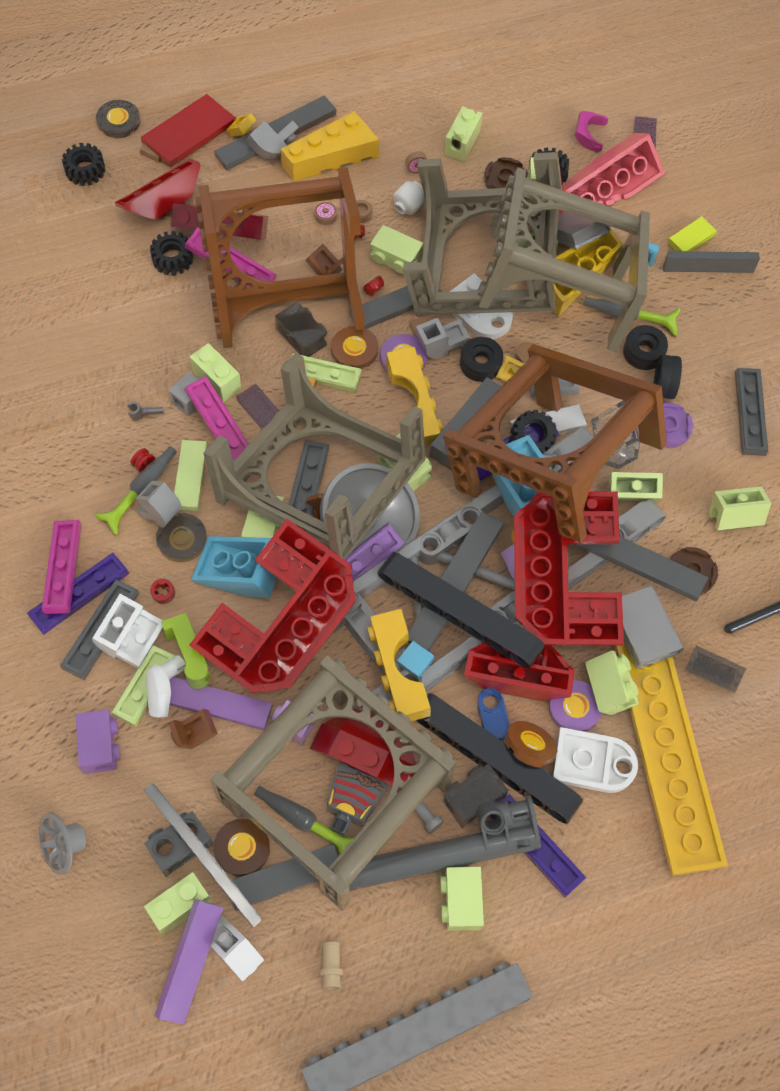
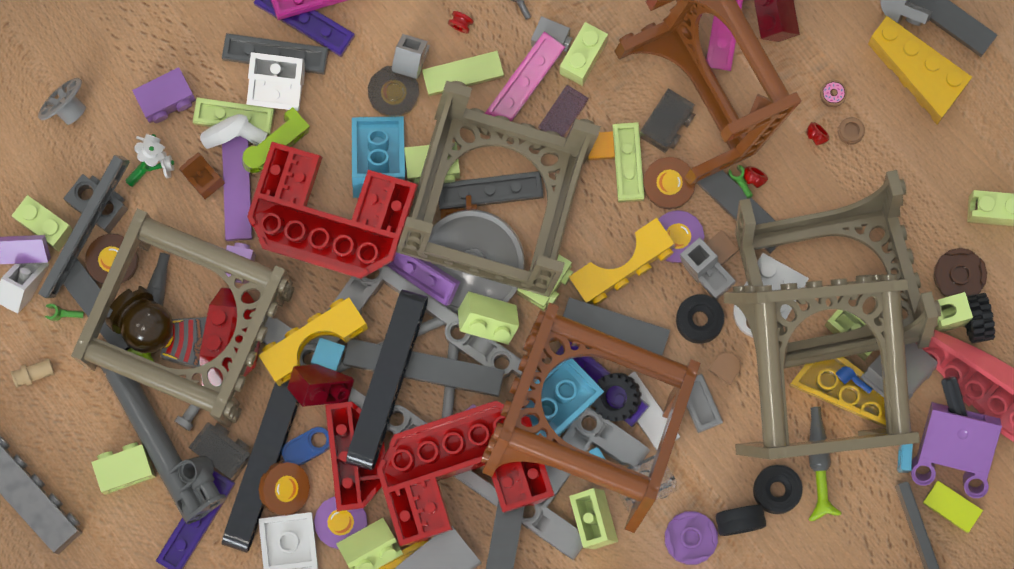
camera: 80 degrees right, 15 degrees up
(139, 483) = (431, 30): piece -> none
(151, 765) = (149, 154): none -> white plant
(163, 583) = (335, 103): red bush -> none
(279, 914) = (59, 313): none -> bright green hand
(326, 822) = (140, 321): none -> dark brown tile
(366, 295) = (741, 181): none -> bright green hand
(395, 249) = (805, 186): yellowish green brick -> none
(409, 198) = (875, 173): white head -> none
(412, 161) = (937, 169): medium nougat tile -> none
(427, 513) = (488, 318): none -> yellowish green brick
(445, 672) = (319, 385): none -> dark red slope
(508, 368) = (696, 351): yellow tile -> none
(572, 255) = (846, 374): none -> blue hand
(653, 195) = (957, 441): none -> medium lavender piece

